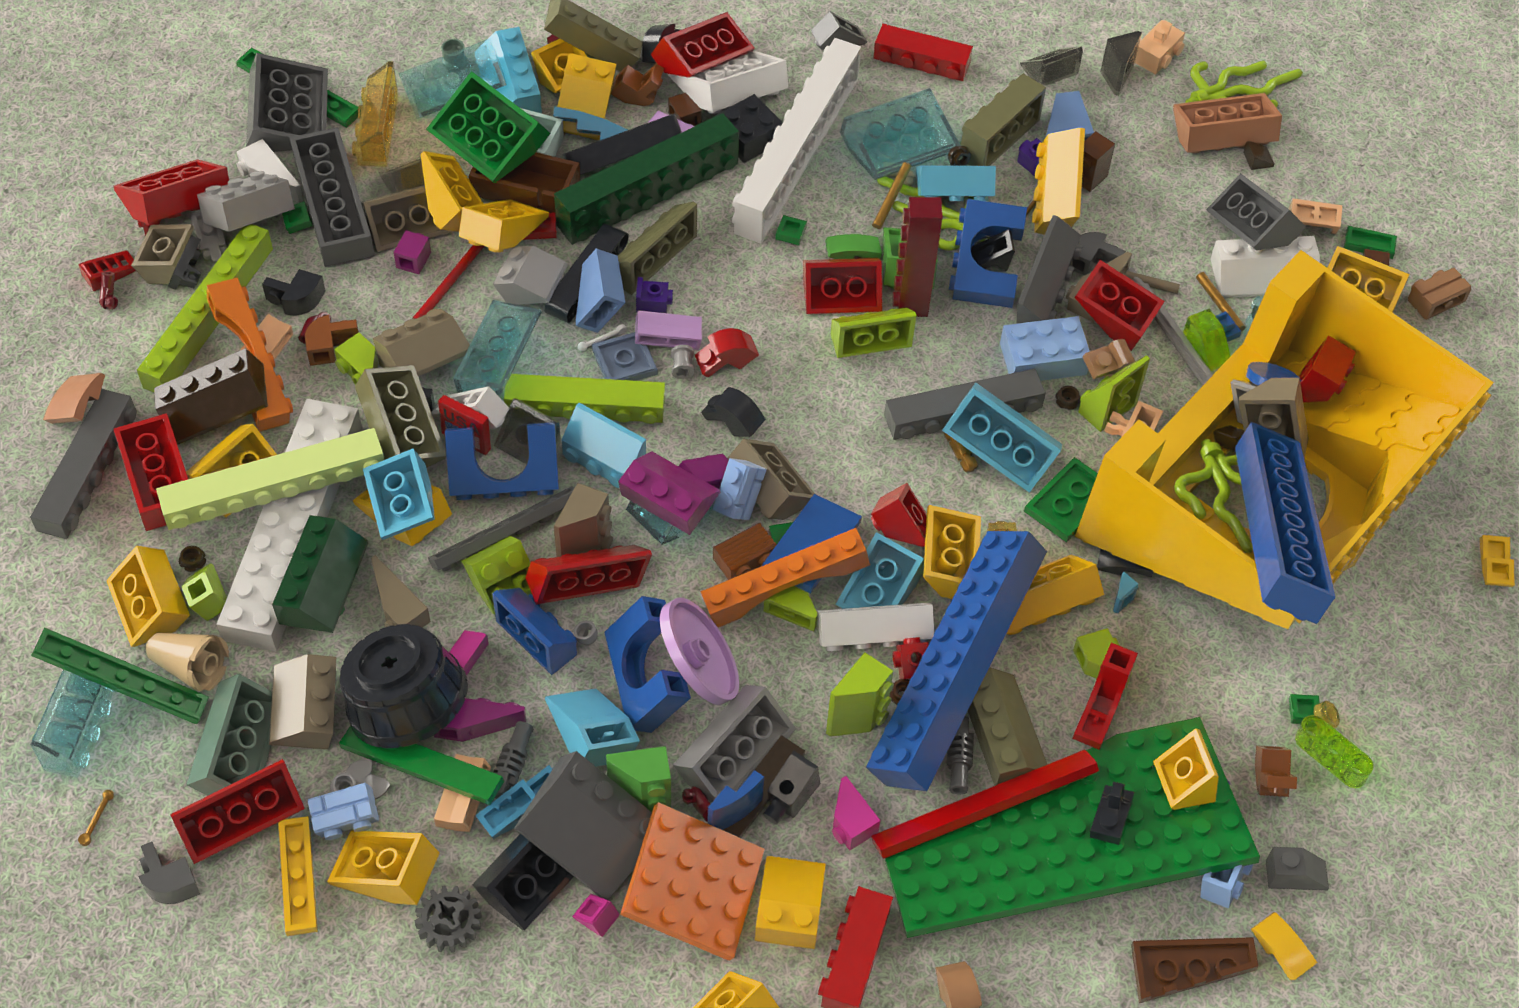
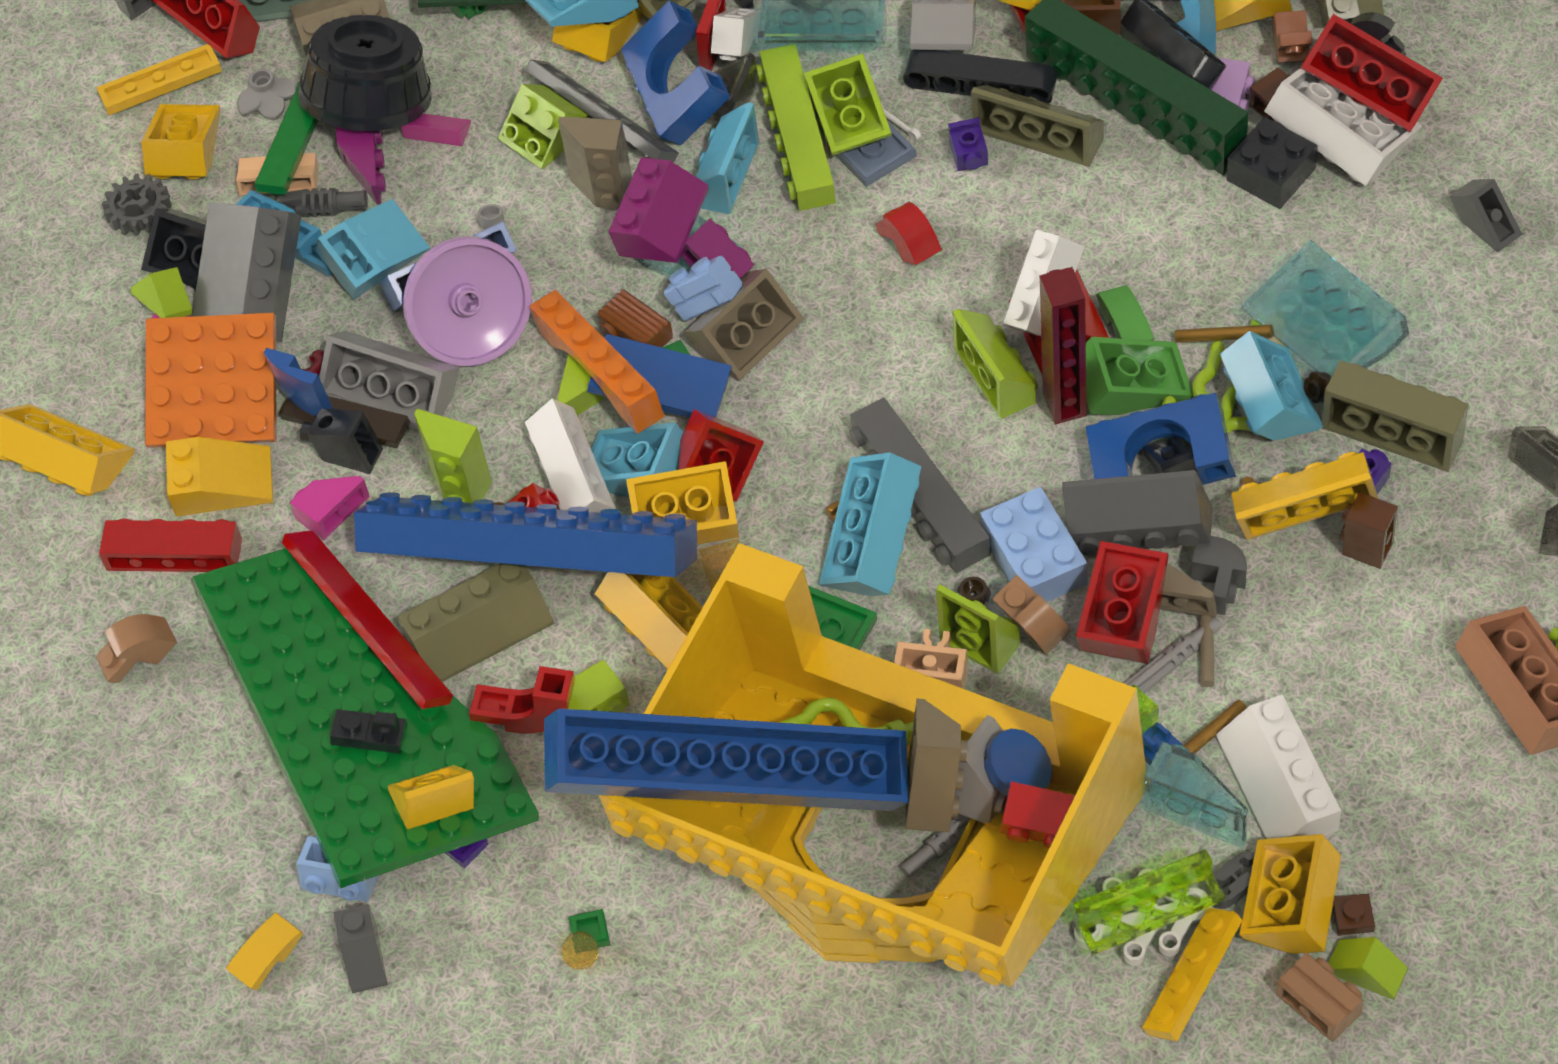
camera: 85 degrees right, 0 degrees up
(343, 811) = (227, 85): light blue brick -> none
(397, 600) = (481, 51): dark tan slope -> none
(534, 629) = (475, 165): blue slope -> none
(570, 909) = (164, 294): none -> lime slope
(587, 353) = (847, 104): none -> lime slope
(587, 573) = (550, 184): red slope -> none
(599, 291) = (942, 84): medium blue slope -> none
(642, 775) = (298, 302): bright green slope -> none
(668, 329) = (921, 171): lavender piece -> none
(682, 361) = (882, 199): light grey bush -> none
(736, 411) = (819, 263): black brick -> none
(791, 230) = (1127, 249): green plate -> none
(796, 141) = (1267, 210): white brick -> none
(823, 277) = (1043, 255): none -> white slope
(922, 52) = (1497, 310): red brick -> none
(960, 758) = (425, 587): dark grey hinge -> none
(1069, 114) = (1441, 495): medium blue slope -> none
(1184, 964) = (221, 854): reddish brown wing -> none
(1255, 215) = (1343, 732): dark grey slope -> none
(1257, 156) = (1493, 737): dark brown slope -> none
(1273, 771) = (482, 903): dark orange brick -> none
(1317, 214) = (1395, 817): light nougat hinge -> none
(1338, 764) = (529, 980): clear neon green beam -> none
(1361, 239) = (1391, 903): green tile -> none
(1417, 264) = (1368, 965): none -> lime slope

